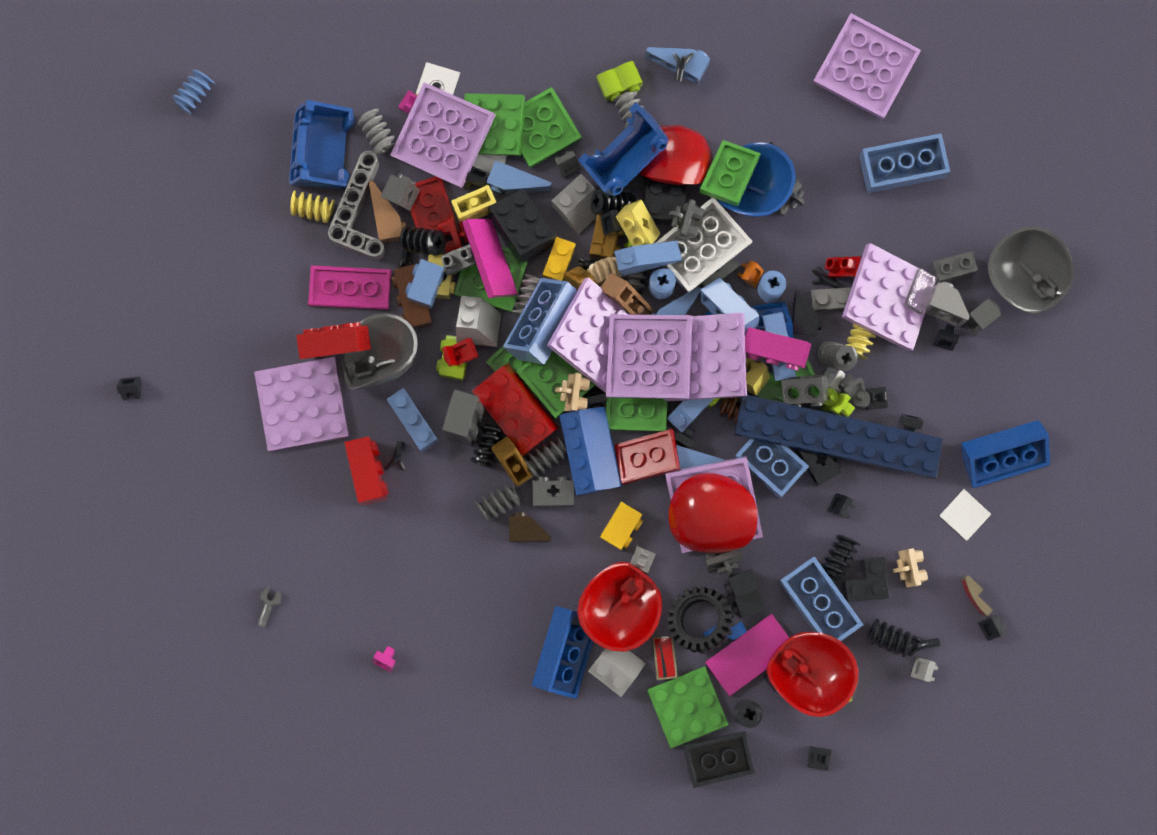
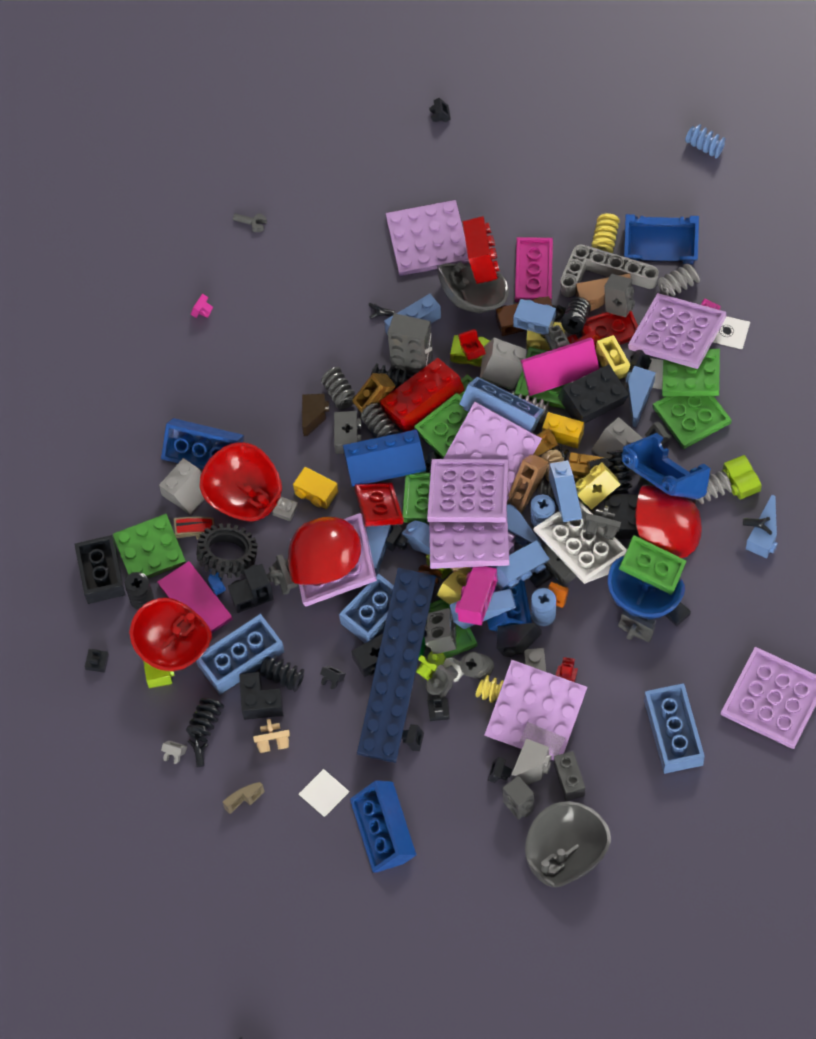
camera: 95 degrees right, 20 degrees down
(366, 470) = (366, 282): red brick -> none
(570, 392) = (444, 437): tan hips -> none
(823, 278) = (556, 660): black bar -> none
(992, 627) = (211, 812): black tile -> none

